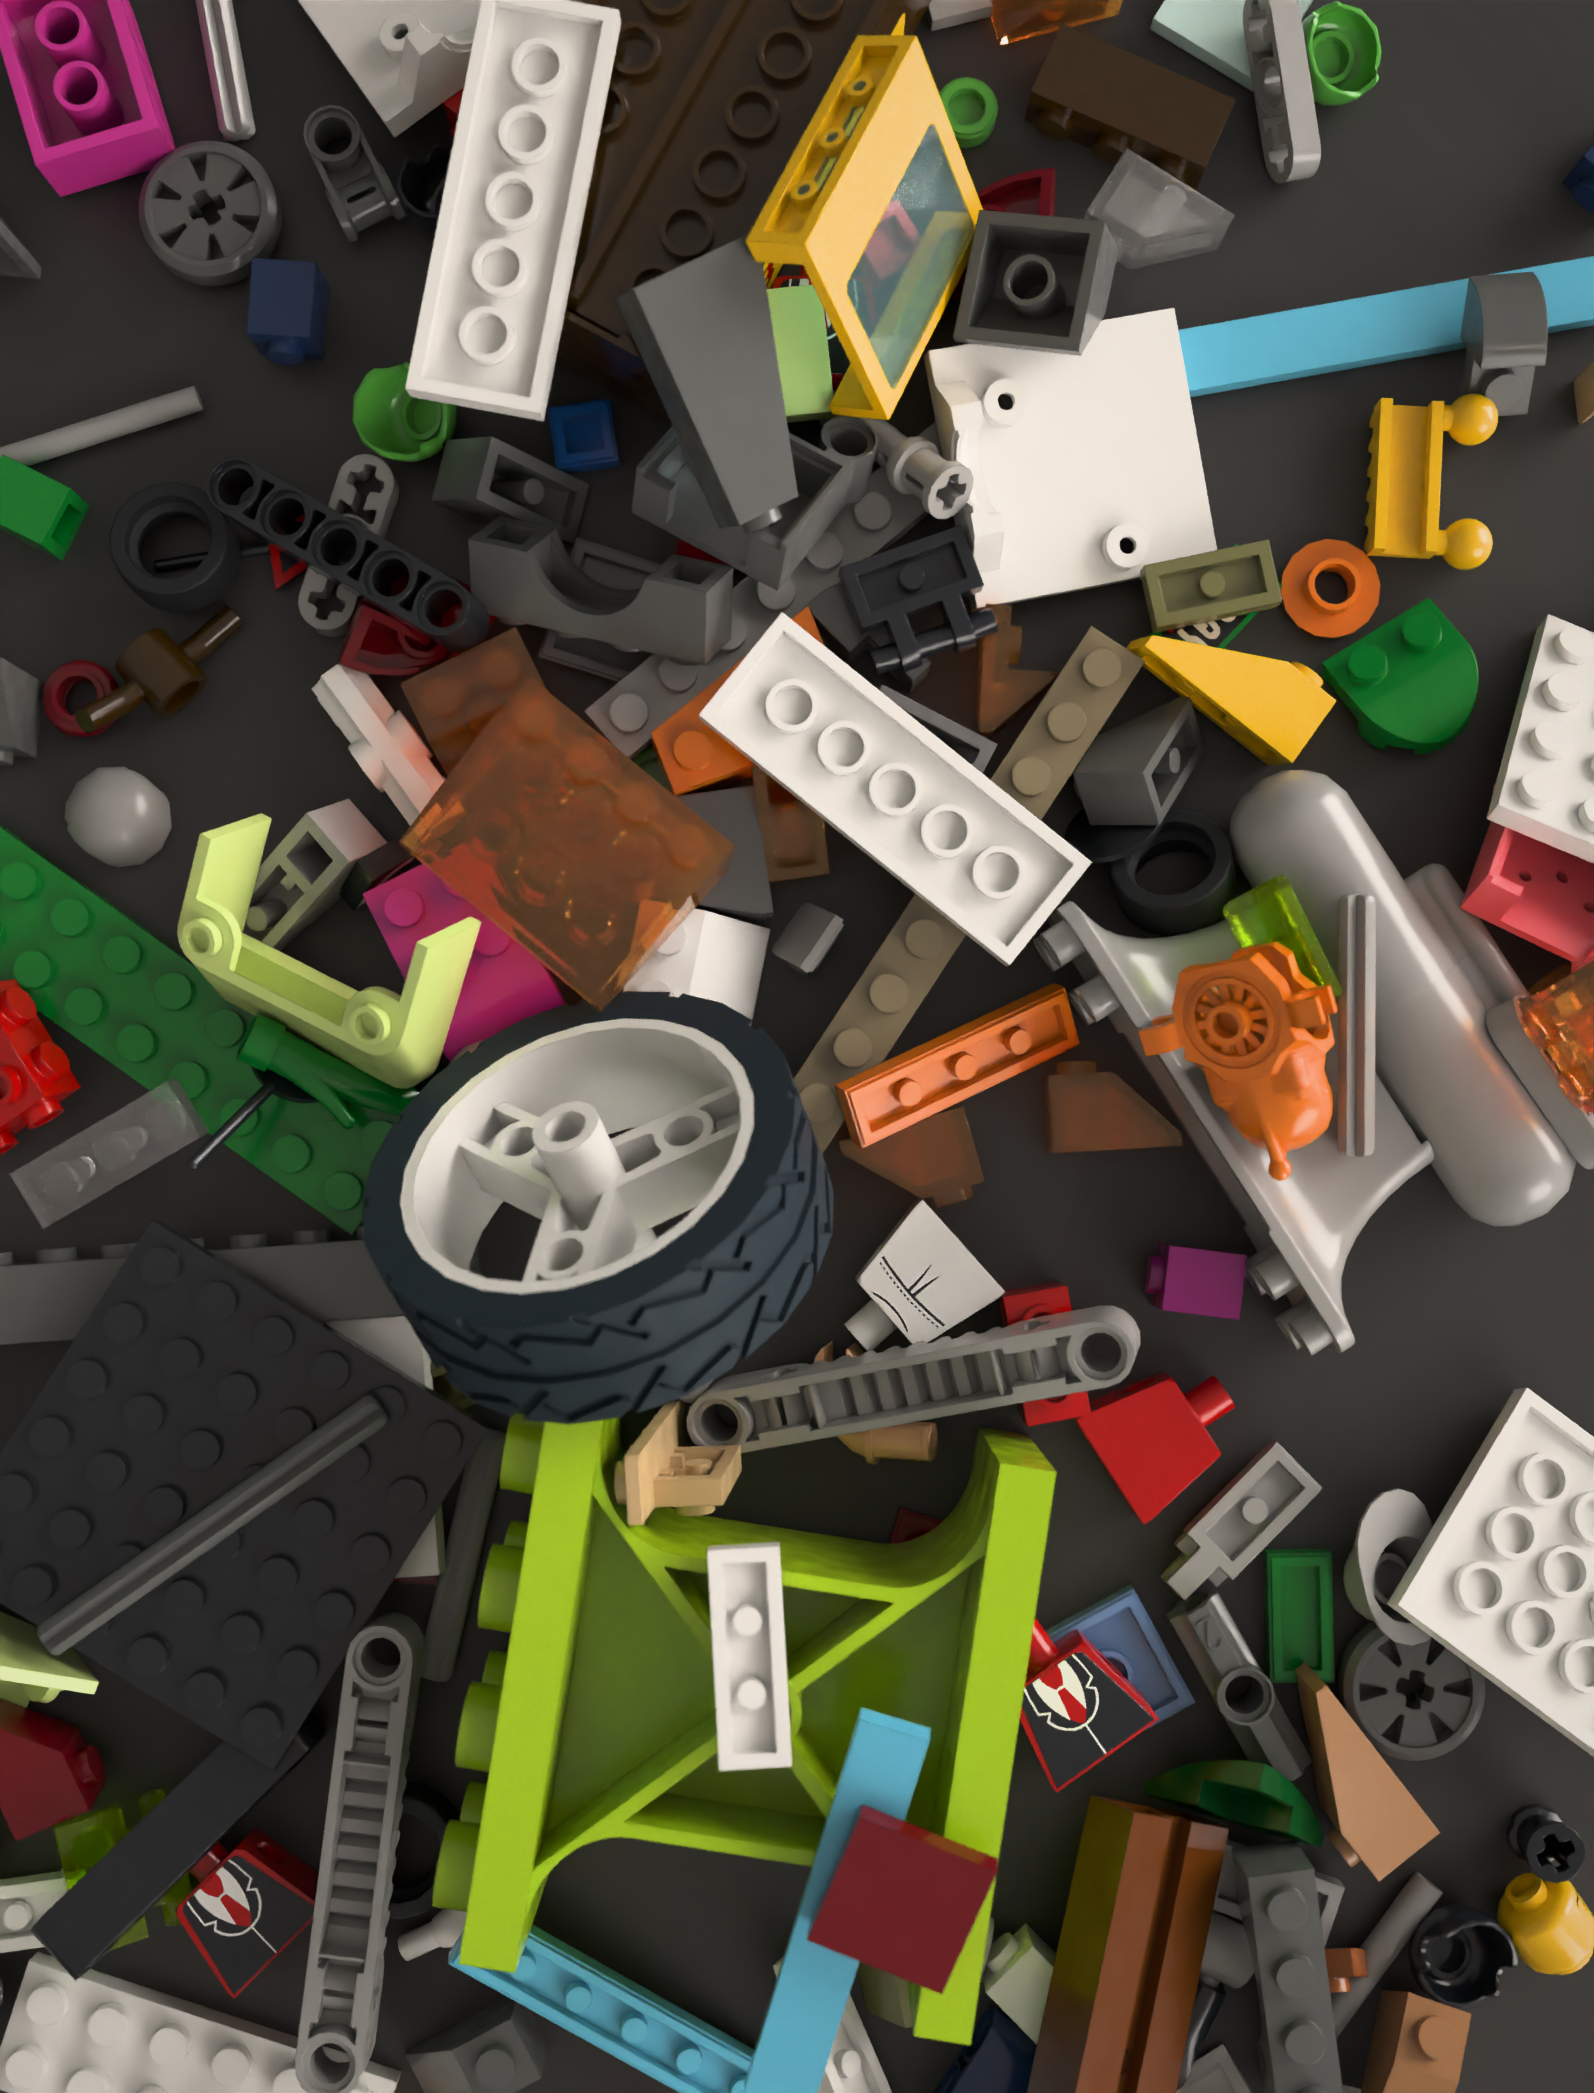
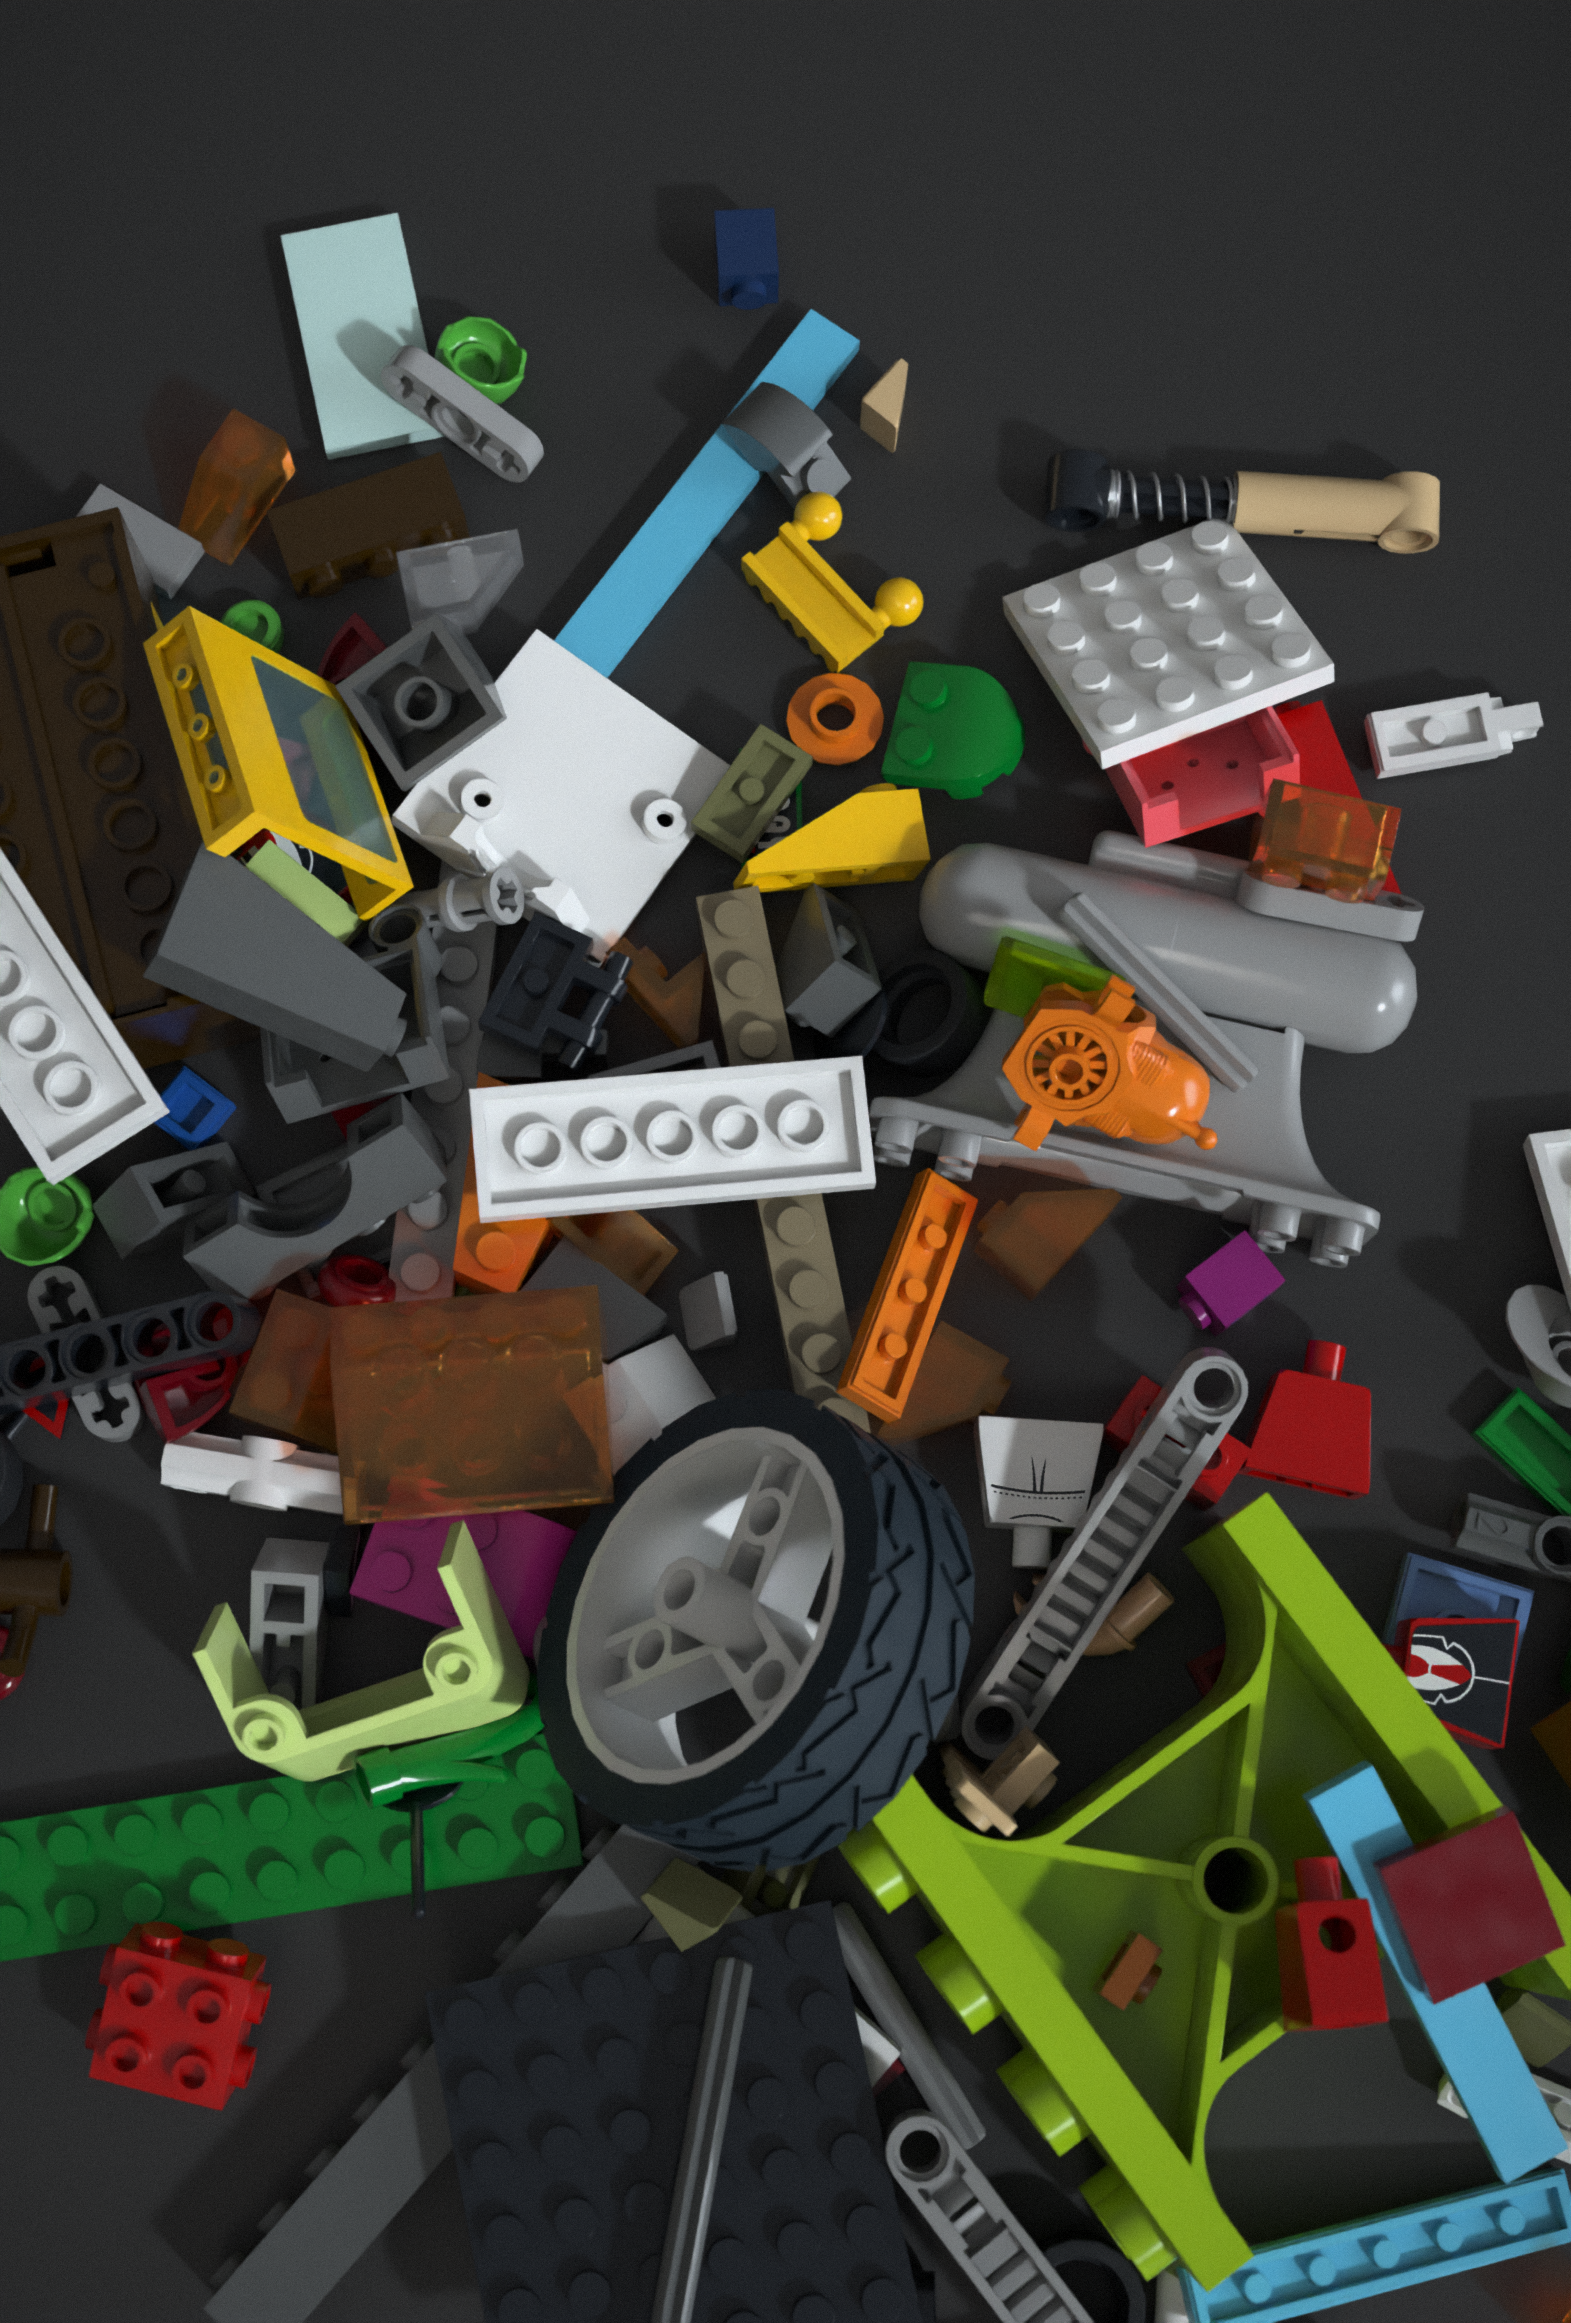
camera: 50 degrees left, 10 degrees down
(109, 1153) = (337, 1986): clear plate -> none
(118, 816) = (98, 1724): light grey hair -> none
(385, 1340) = (689, 1902): none -> olive slope
(590, 670) = (355, 1281): none -> dark red piece
(632, 1689) = (1130, 1972): none -> dark orange plate
(749, 1656) = (1188, 1841): white plate -> none
(751, 1862) = (1323, 1985): none -> red torso
(1240, 1520) = (1432, 1427): light grey hinge -> none

